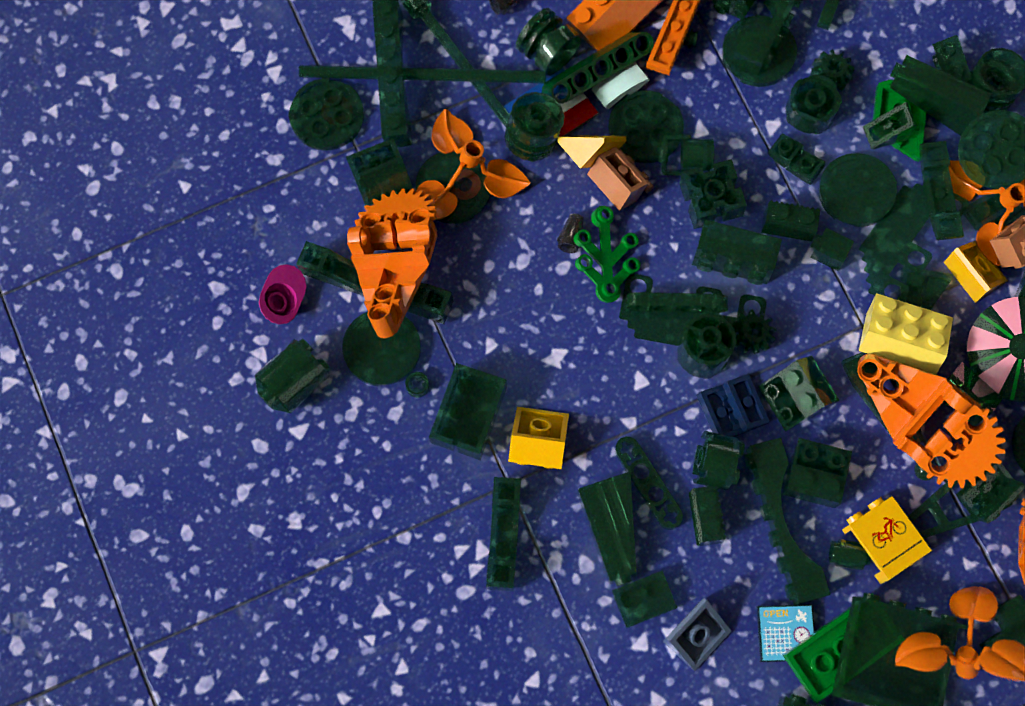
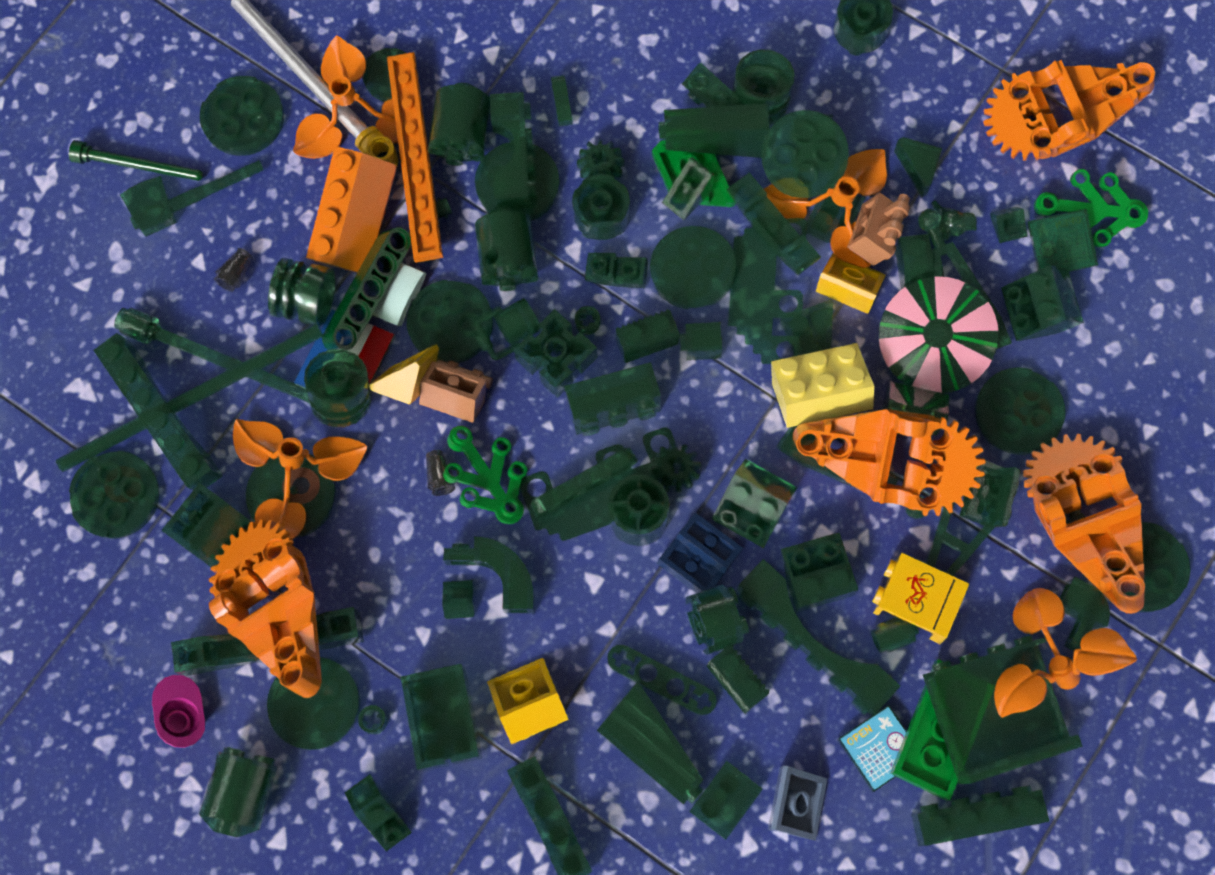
camera: 30 degrees left, 0 degrees up
(381, 452) = (377, 812): none -> clear green slope
(531, 334) = (458, 599): none -> clear green slope
(582, 328) = (515, 578): none -> clear green arch
(721, 94) = (506, 249): none -> clear green cylinder
(752, 191) = (582, 313): none -> clear green bush

